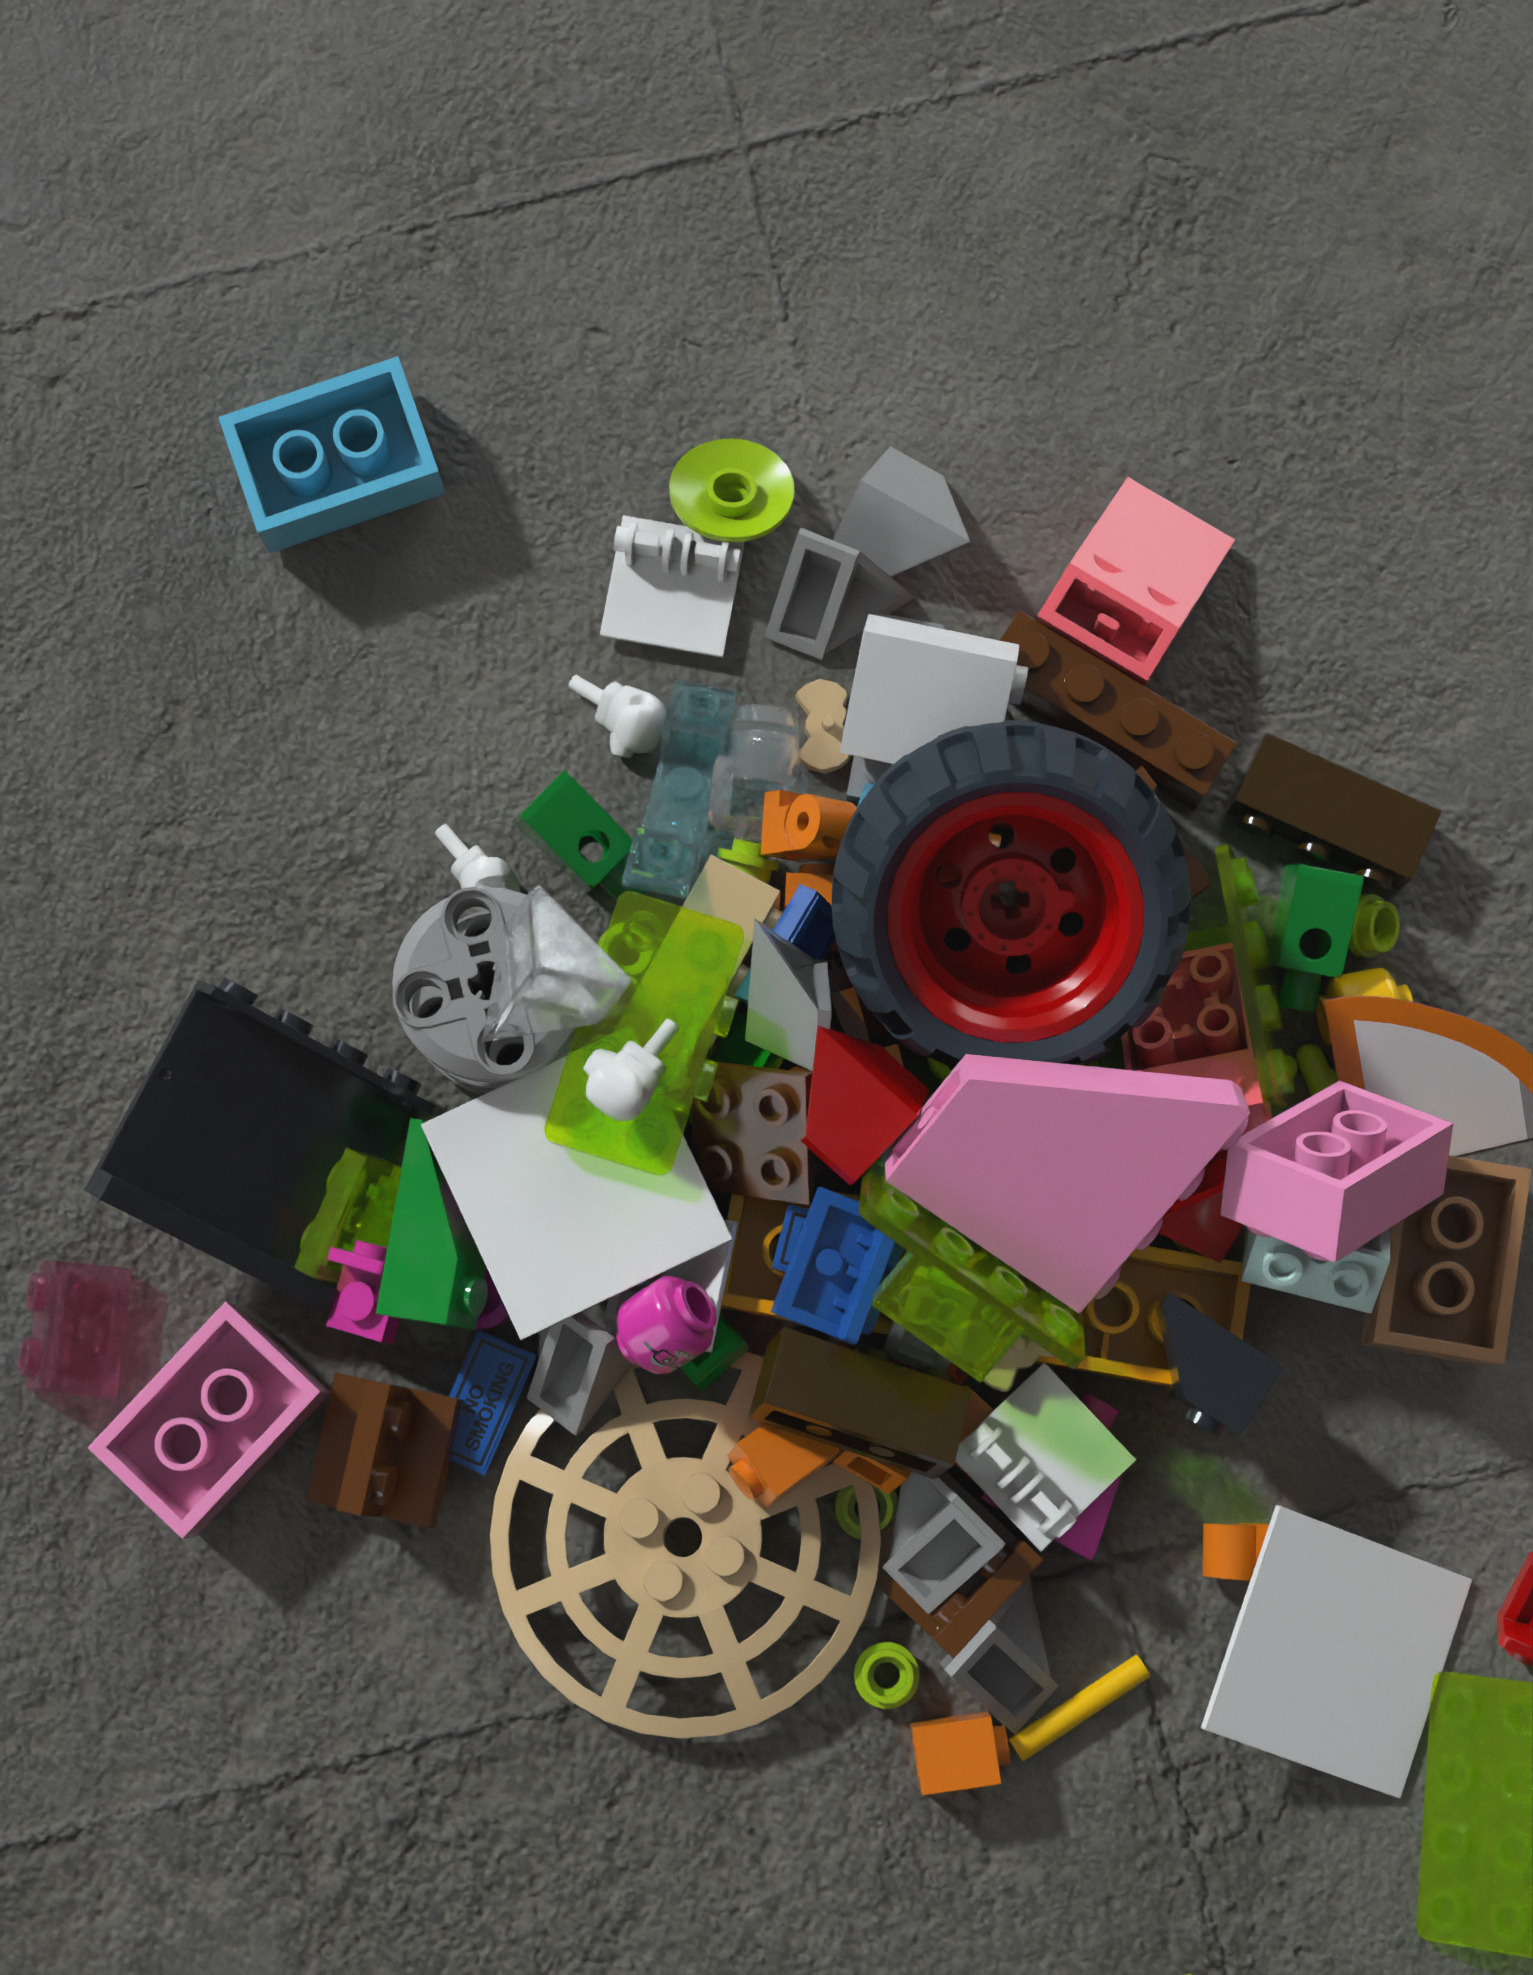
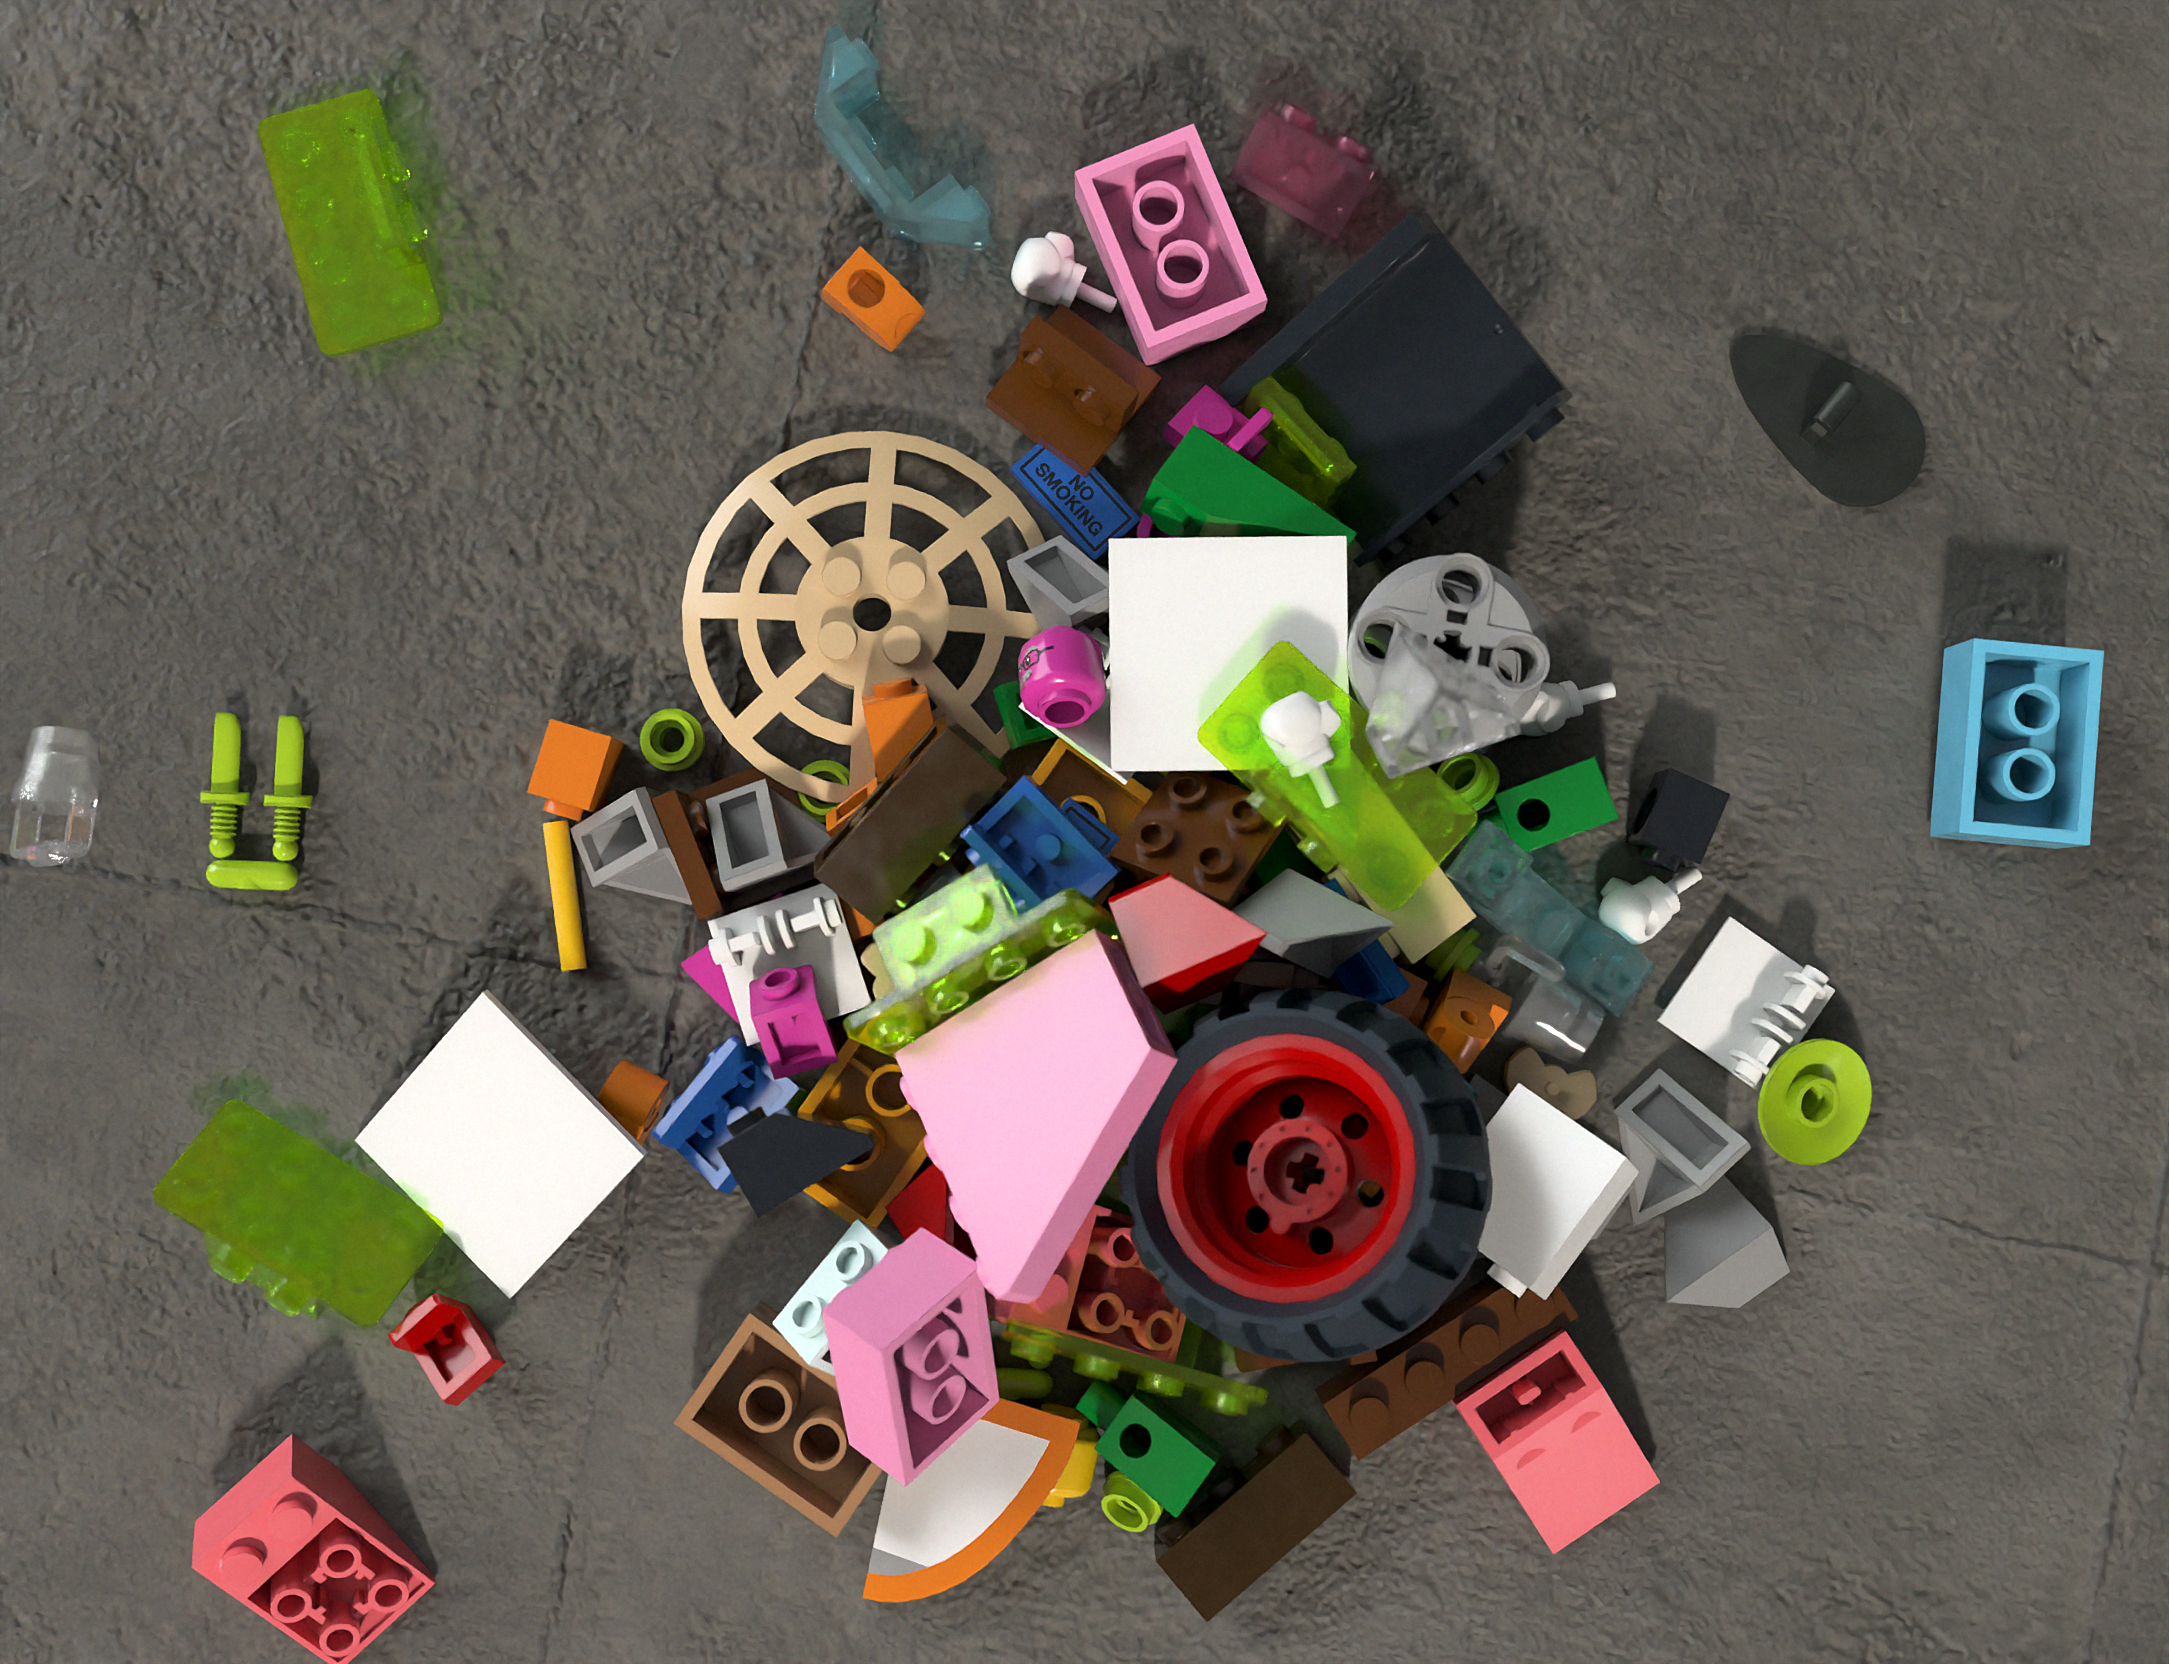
camera: 115 degrees right, 5 degrees up
(100, 745) = (1830, 419): none -> pearl dark grey shield
(272, 1653) = (940, 214): none -> clear light blue slope
(283, 1524) = (1048, 273): none -> white piece
(382, 1681) = (873, 300): none -> orange leg
(536, 719) = (1676, 820): none -> black brick
(591, 911) = (1471, 777): none -> lime plate
(1094, 1427) = (791, 1021): none -> dark pink bracket
(1185, 1461) = (729, 1086): none -> blue bracket

